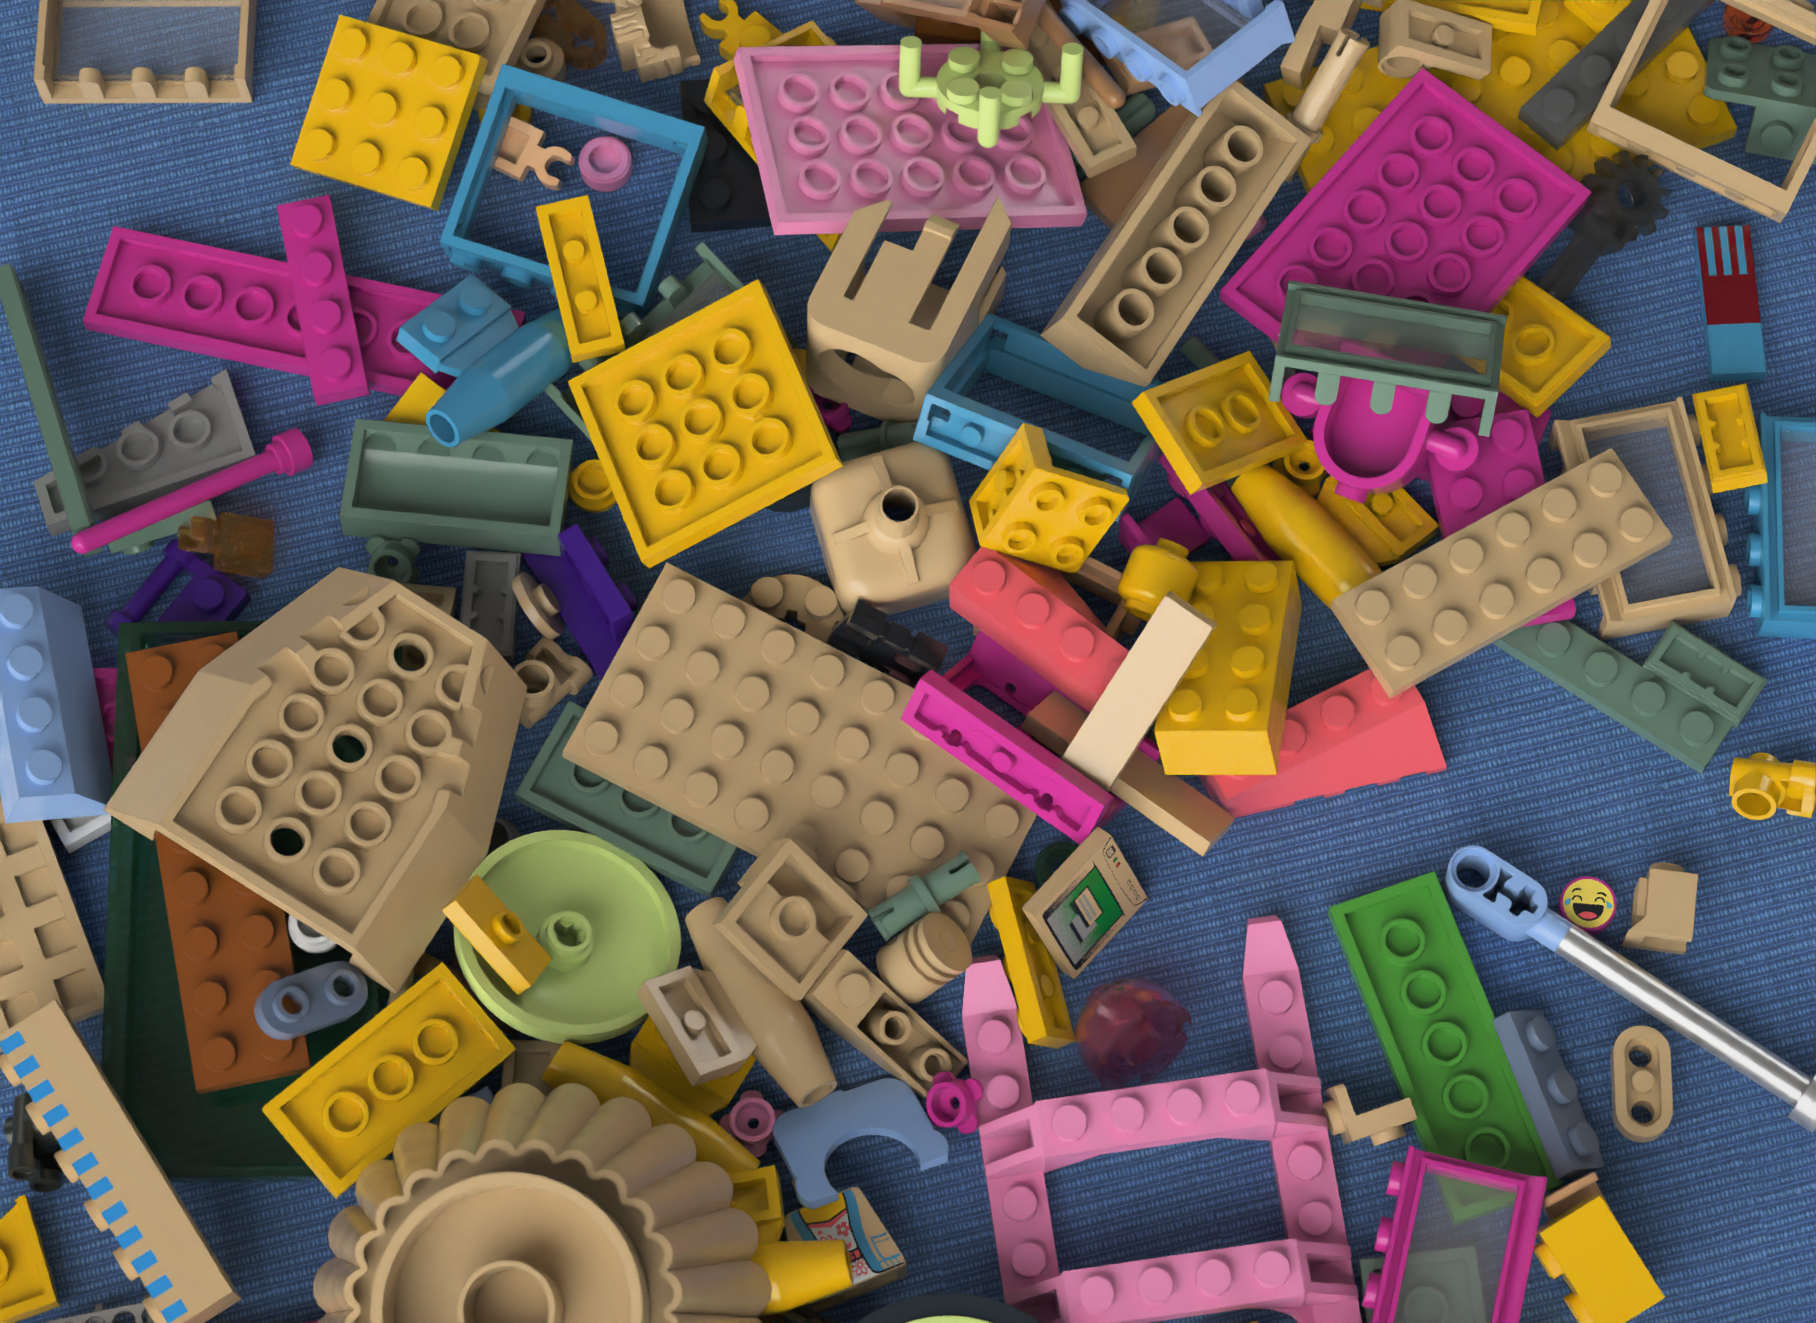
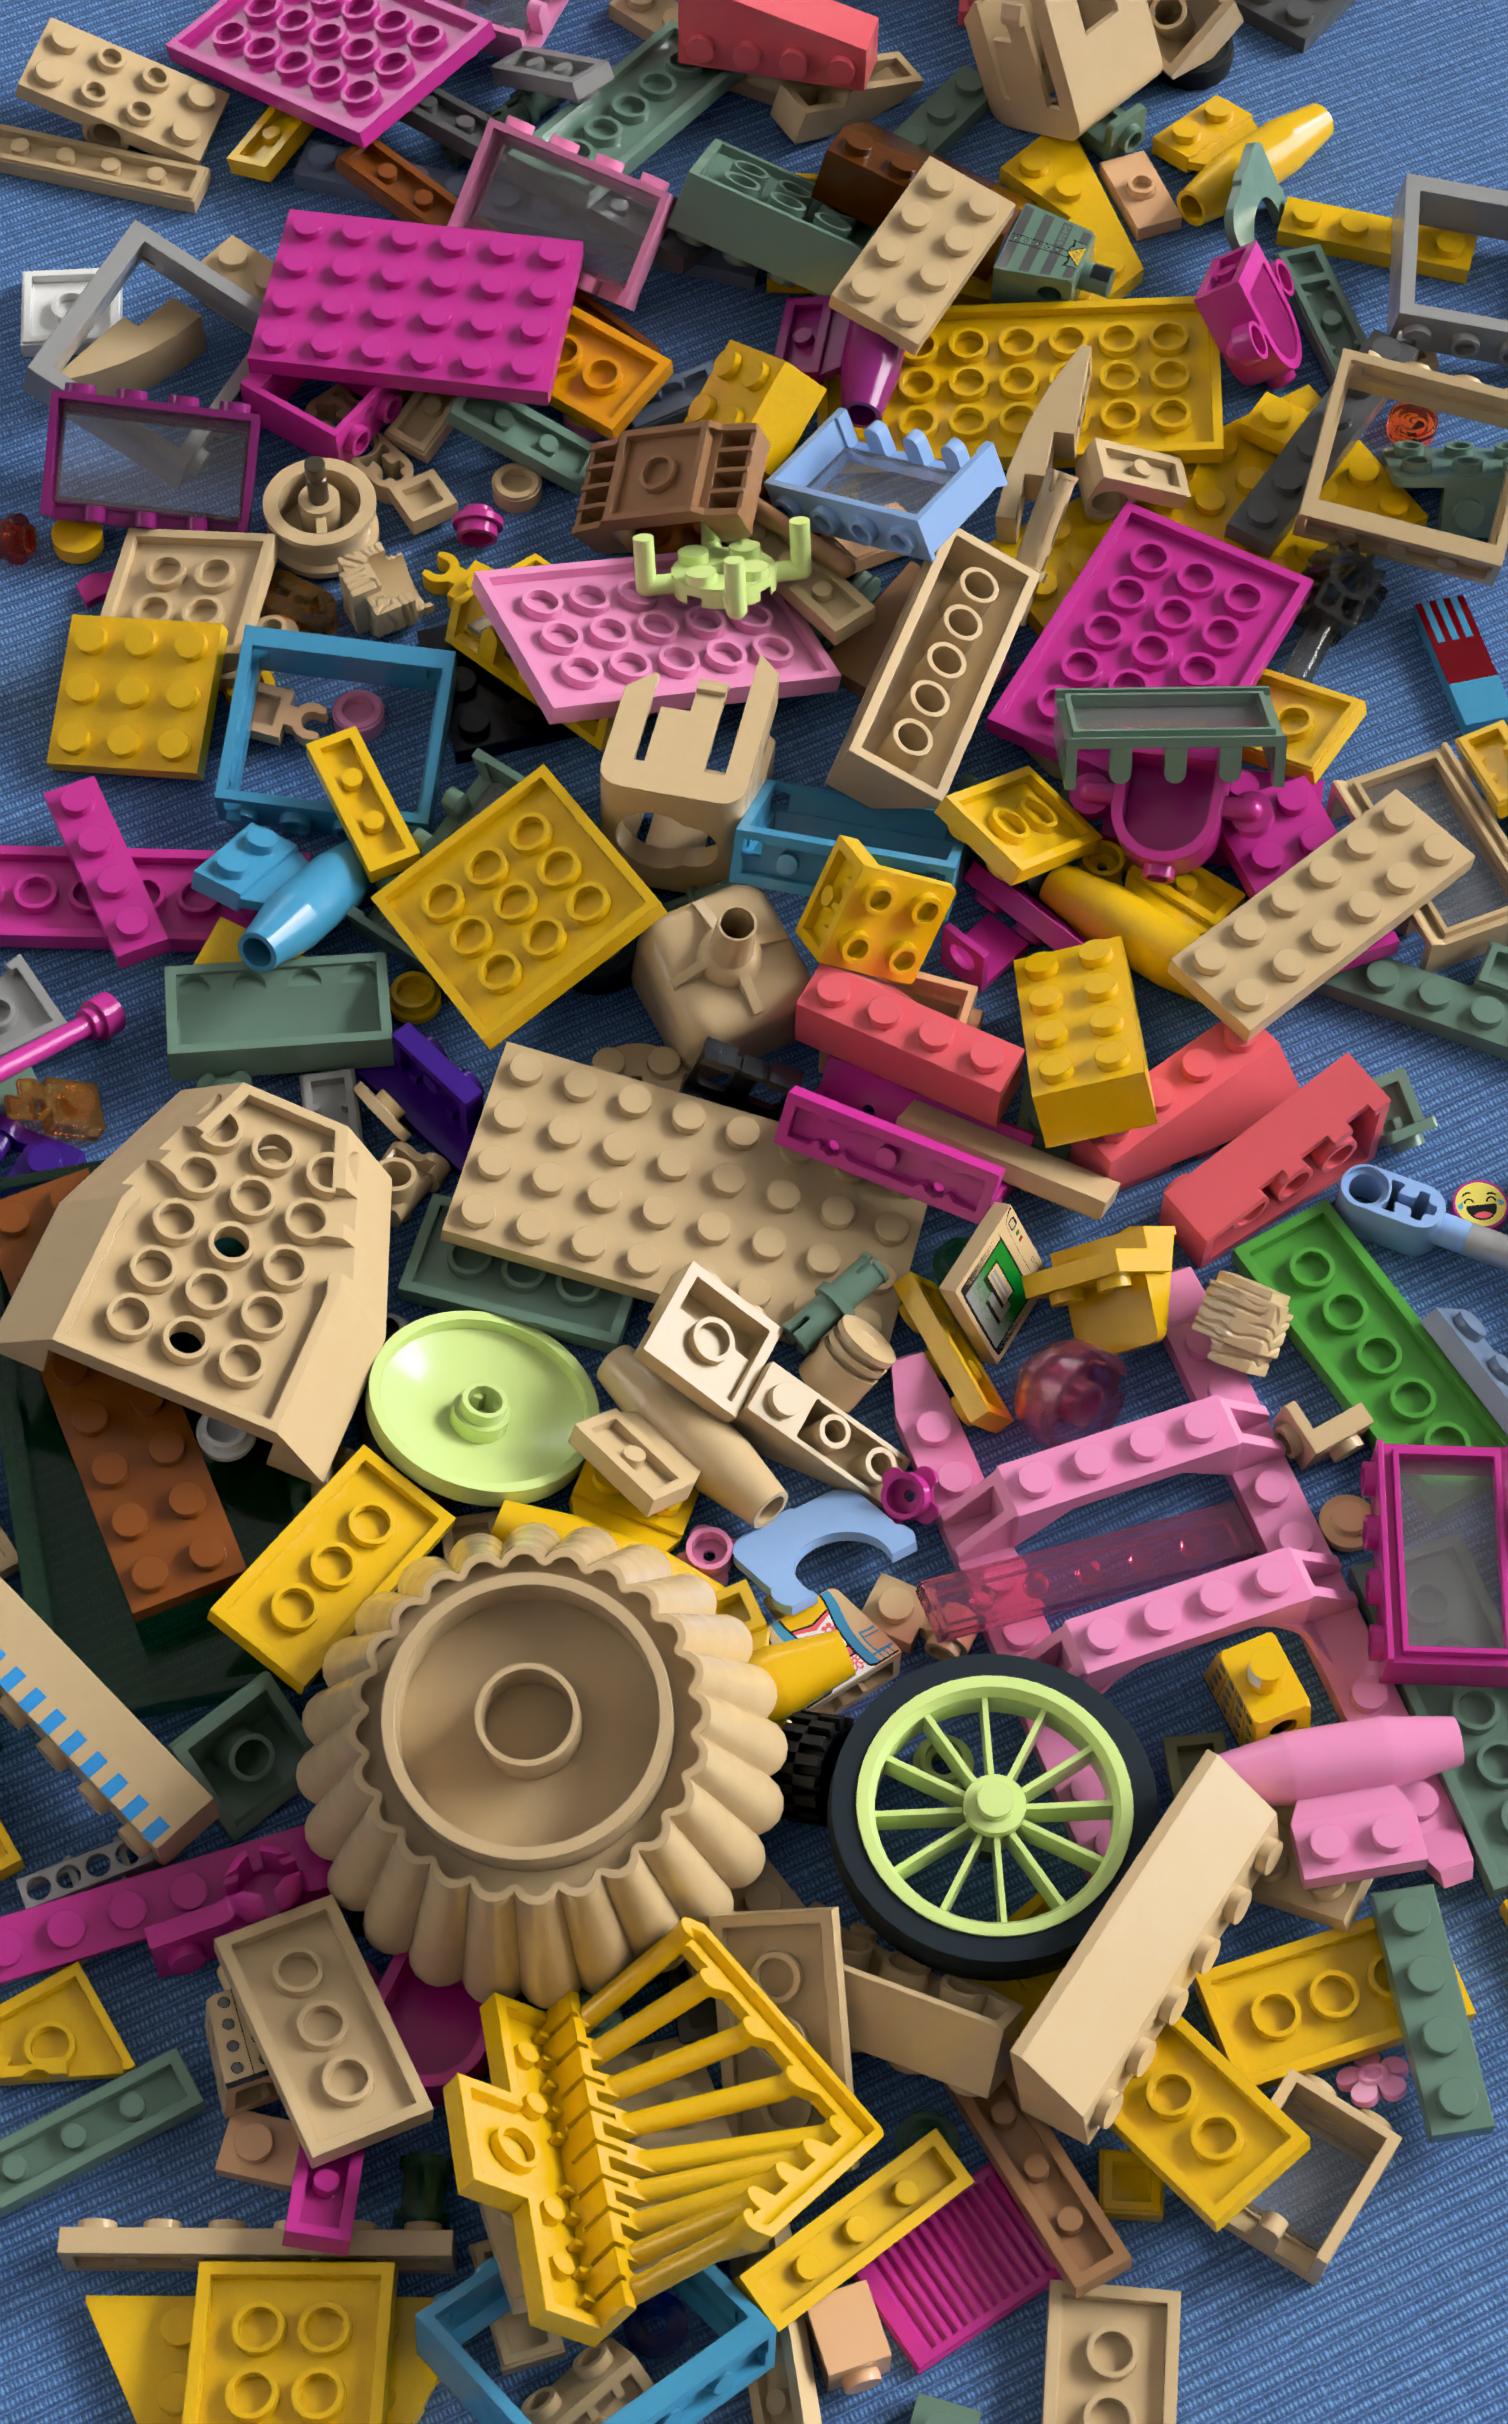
camera: 15 degrees left, 10 degrees down
(275, 1243) = (246, 1754): none -> sand green slope
(314, 998) = (242, 1500): sand blue plate -> none
(497, 934) = (415, 1408): yellow plate -> none
(922, 1218) = (899, 1614): none -> tan plate
(1103, 1216) = (1085, 1571): none -> clear pink tile
(1139, 691) = (1010, 1059): tan tile -> none
(1154, 573) = (995, 975): yellow head -> none
(1198, 928) = (1112, 1287): none -> yellow piece
(1314, 992) = (1243, 1322): none -> tan hair
(1364, 1208) = (1343, 1522): none -> light nougat plate
(1392, 826) = (1277, 1162): none -> coral wedge
(1524, 789) = (1404, 1117): none -> sand green bracket

